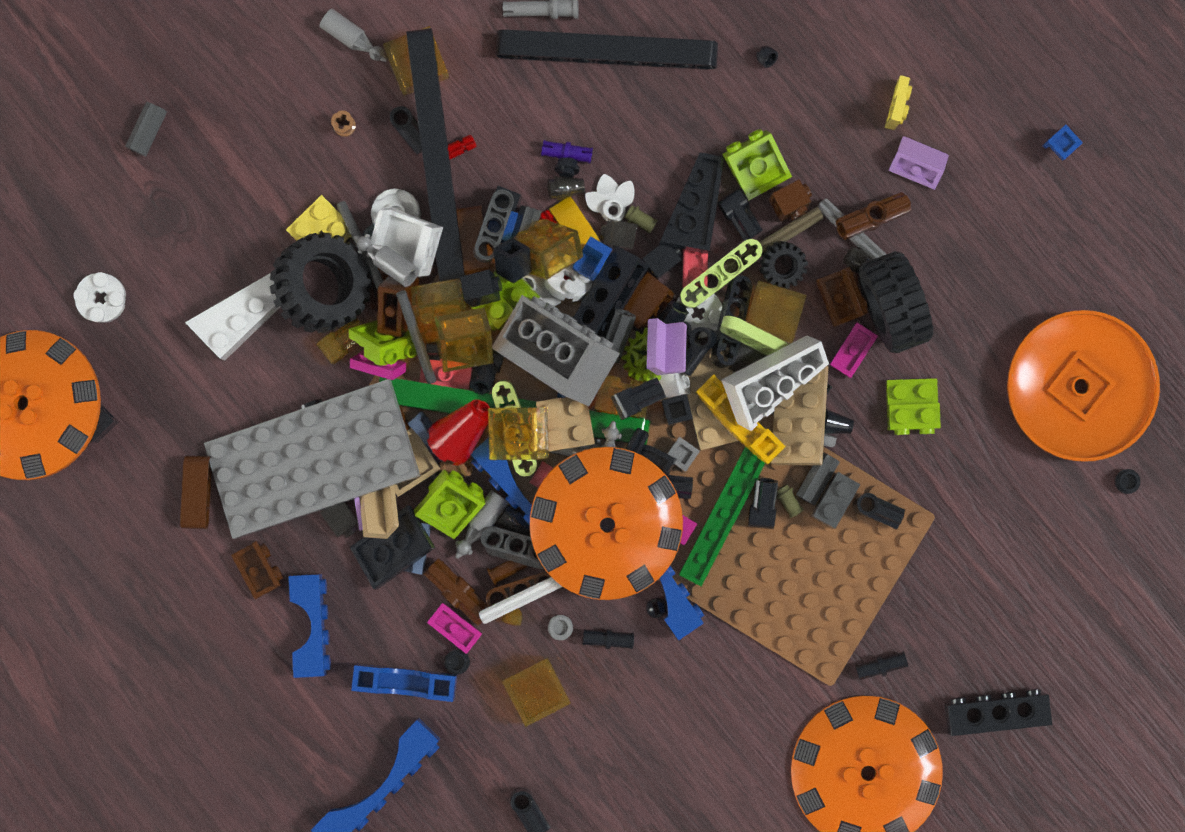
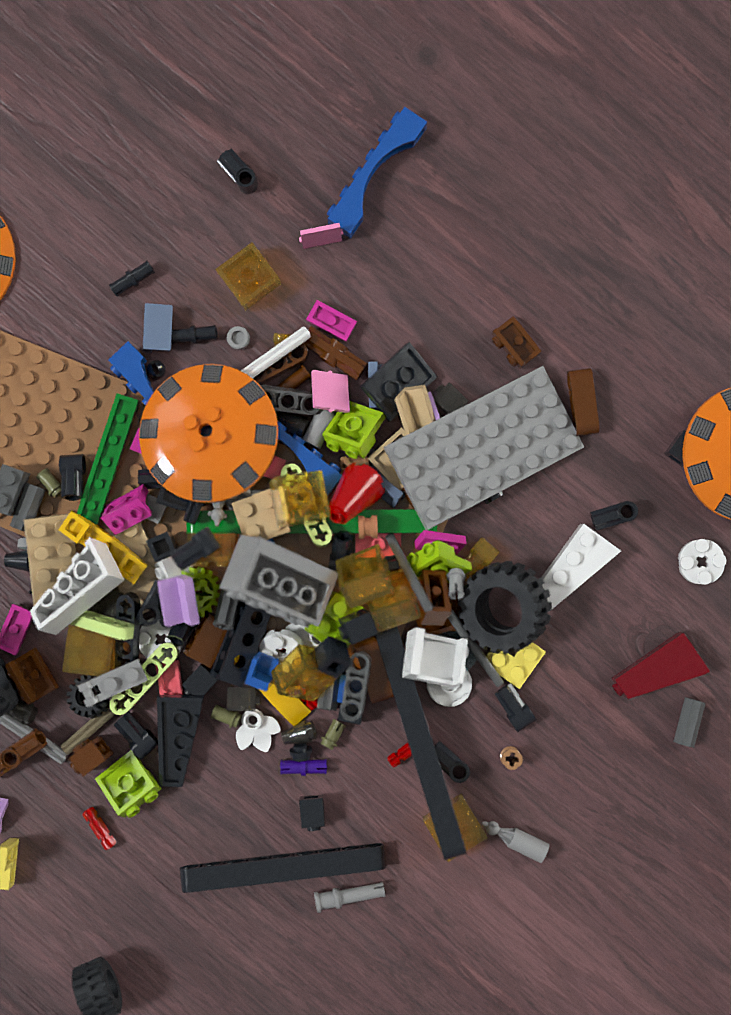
camera: 170 degrees right, 0 degrees up
(166, 191) = (661, 667): none -> dark red slope
(188, 363) = (612, 515): none -> black piece
(311, 657) = (467, 328): blue arch -> none
(327, 170) = (517, 711): none -> black piece
(367, 317) = (456, 580): none -> light grey pin
(388, 261) = (446, 637): light grey wheel -> none
(404, 682) = (387, 264): blue arch -> none
(443, 723) = (321, 235): none -> bright pink piece
(451, 392) = (368, 527): none -> nougat wheel
(457, 662) = (324, 292): black plate -> none
(468, 548) = (330, 391): none -> bright pink piece
(529, 180) = (333, 734): none -> olive pin
(565, 102) = (312, 812): none -> black brick
(646, 652) = (157, 327): none -> sand blue panel
(665, 712) = (132, 278): none -> black pin
(709, 456) = (127, 510): none -> dark pink bracket
(753, 274) = (113, 682): none -> light grey plate
(767, 56) = (135, 886): black hinge -> none
(796, 124) = (99, 828): none -> red axle

